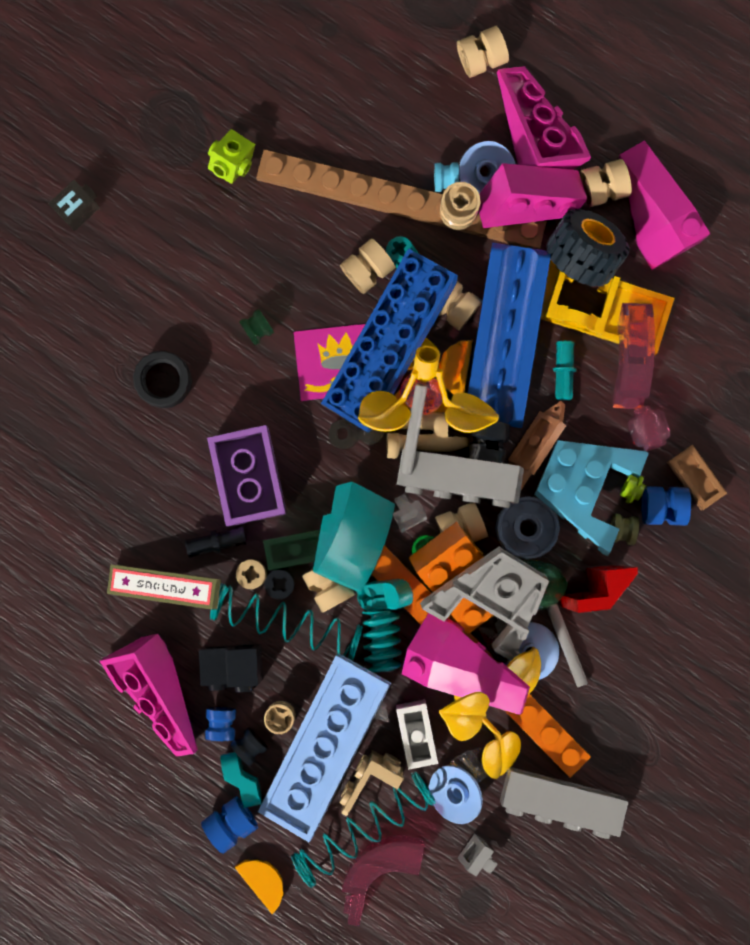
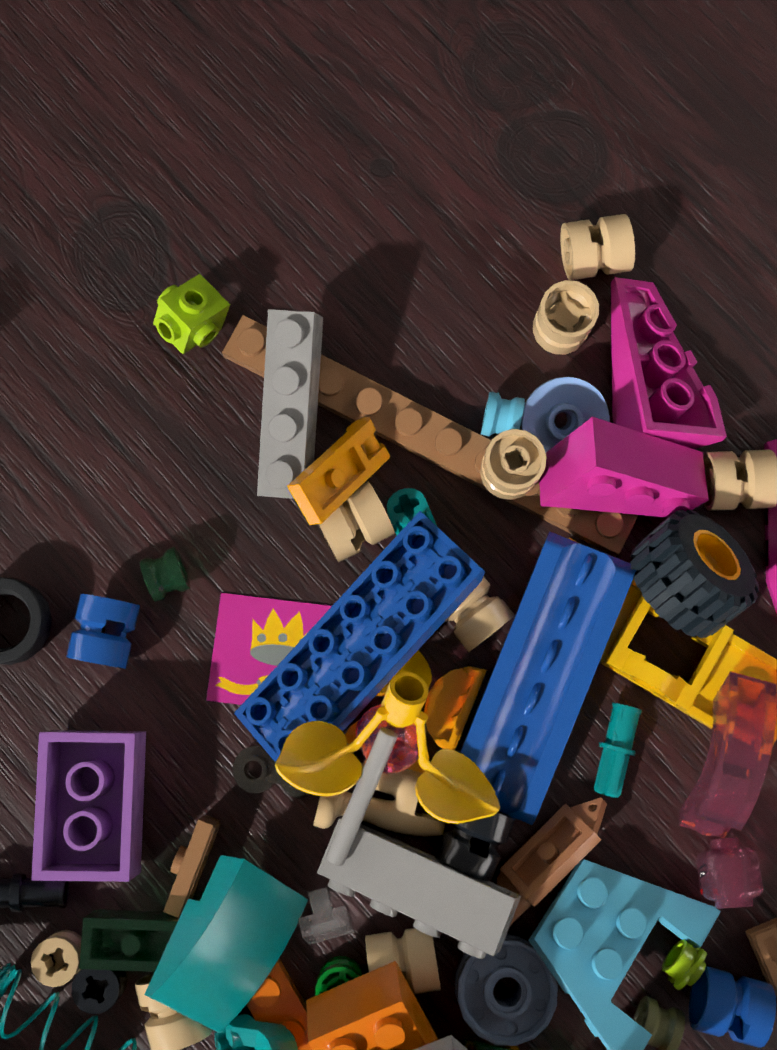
camera: 10 degrees right, 5 degrees down
(227, 370) = (96, 647): none -> blue wheel
(310, 199) = (289, 399): none -> light grey brick
(317, 498) = (190, 863): none -> medium nougat plate
(352, 235) = (339, 471): none -> light orange plate
(472, 103) = (565, 317): none -> tan wheel

